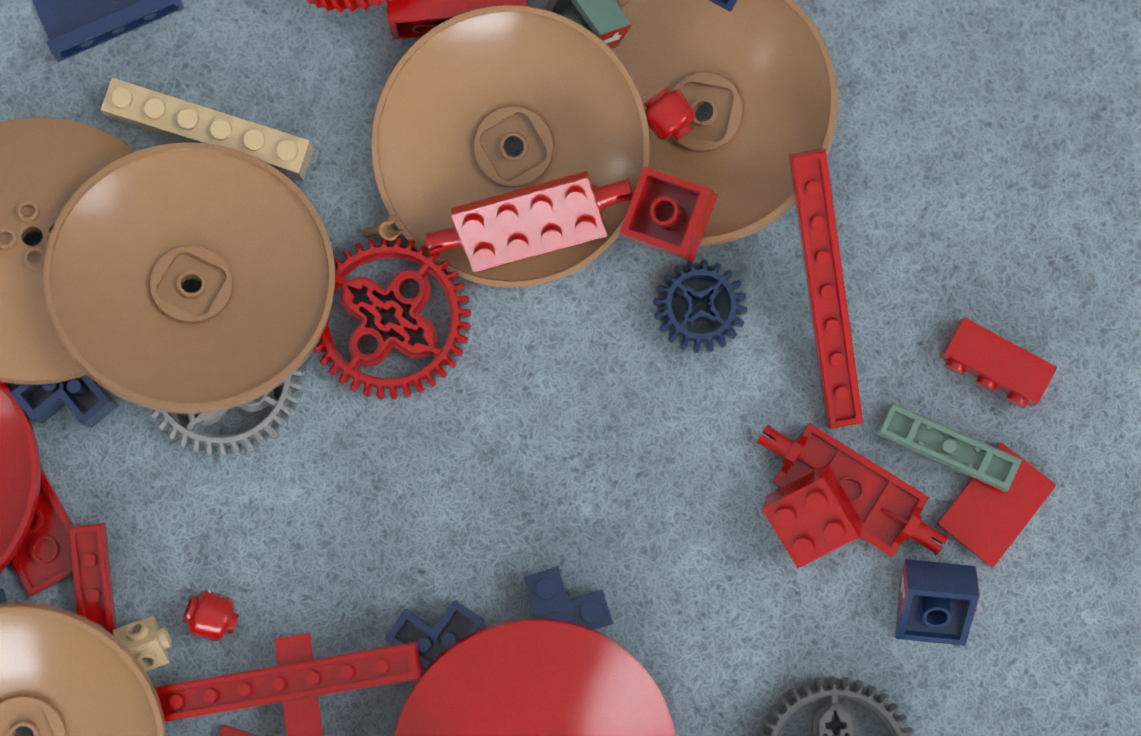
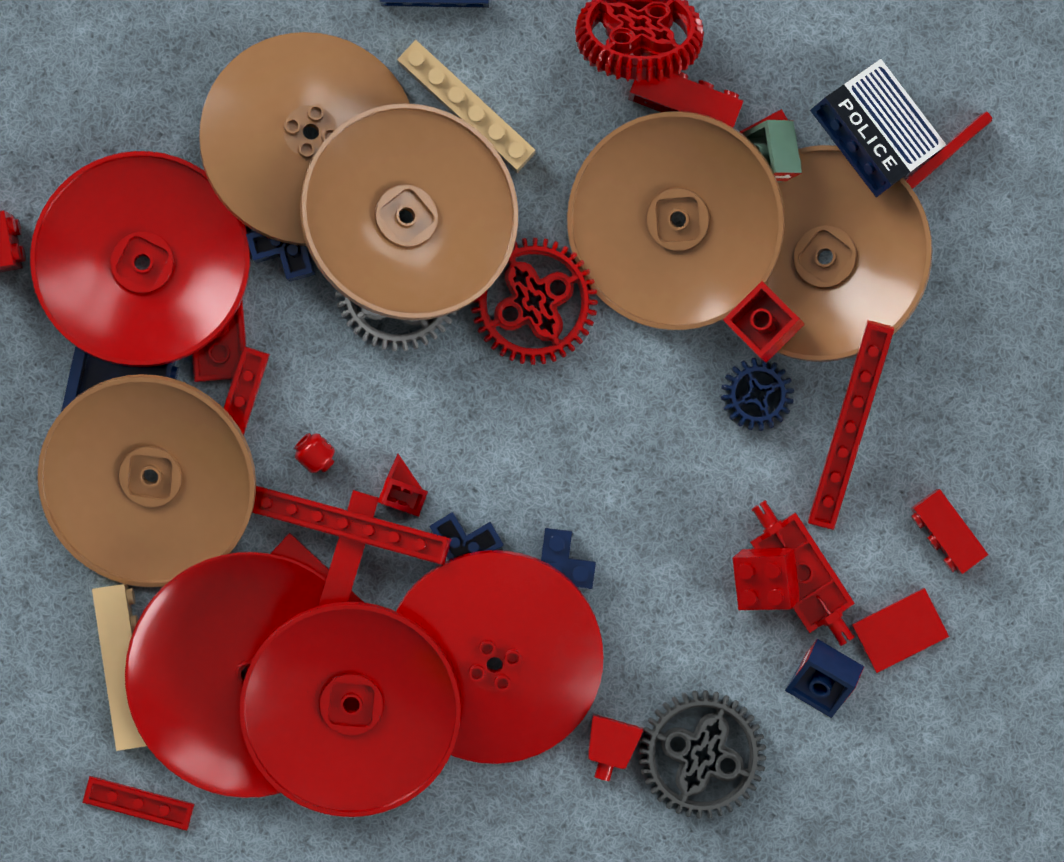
camera: 30 degrees right, 5 degrees up
(146, 642) = (263, 450): tan brick -> none
(334, 611) = (402, 489): none -> red slope
(384, 229) = (559, 236): medium nougat hand -> none
(530, 220) = (664, 281): plate -> none
(669, 114) = (798, 250): red head -> none
(949, 447) = (885, 575): sand green plate -> none

